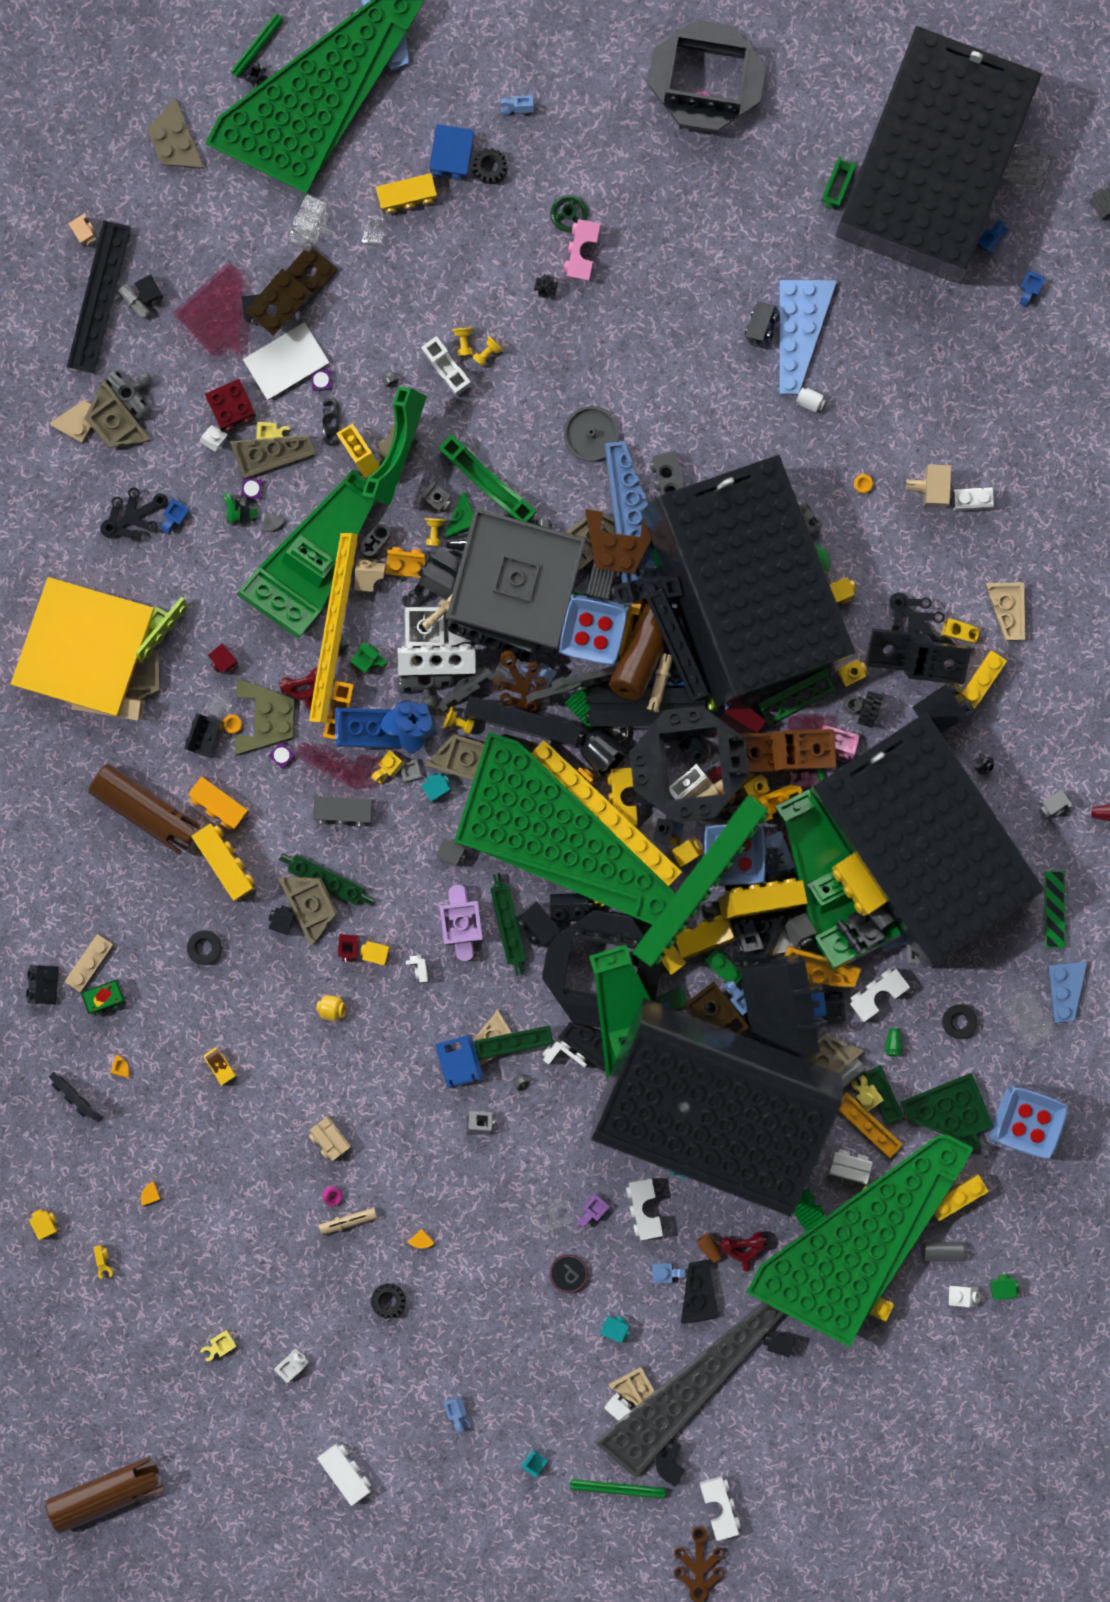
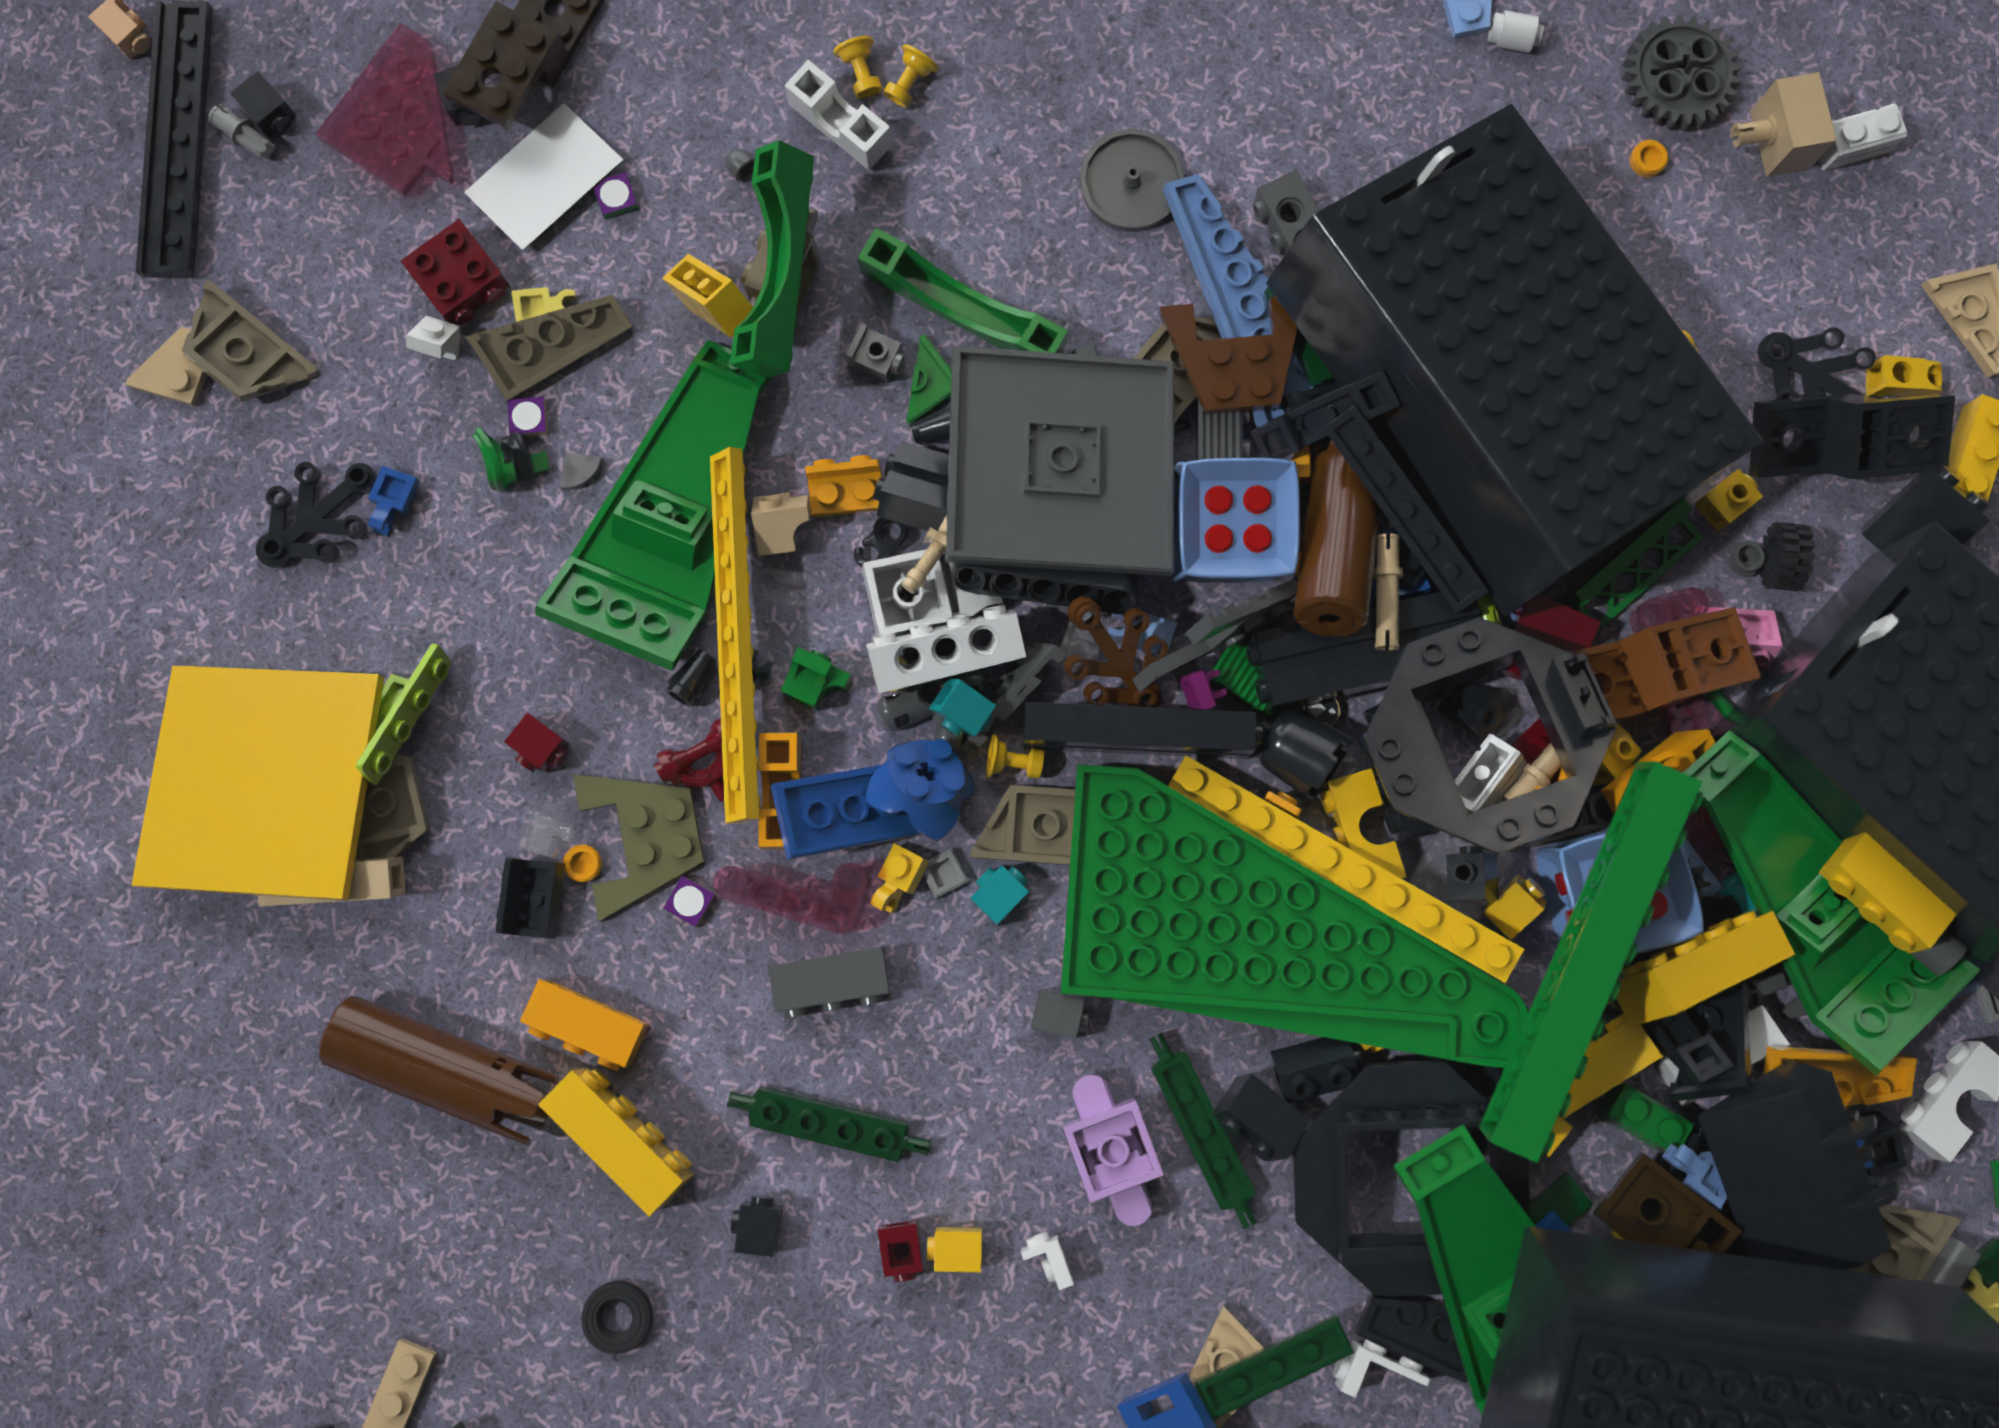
camera: 15 degrees left, 5 degrees down
(120, 385) = (247, 286): dark grey piece -> none
(306, 643) = (690, 680): none -> black cone
(310, 904) = (806, 1181): dark tan wing -> none
(328, 430) = (651, 249): black piece -> none
(331, 1008) = (895, 1382): yellow head -> none
(368, 541) = (788, 458): dark grey beam -> none
(434, 523) = (883, 401): yellow piece -> none
(438, 691) = (962, 708): none -> teal brick
(557, 709) = (1197, 689): none -> magenta tile
(800, 930) = (1783, 1011): dark grey brick -> none
(864, 927) = (1911, 978): black plate -> none
(894, 425) = (1681, 72): none -> dark grey gear

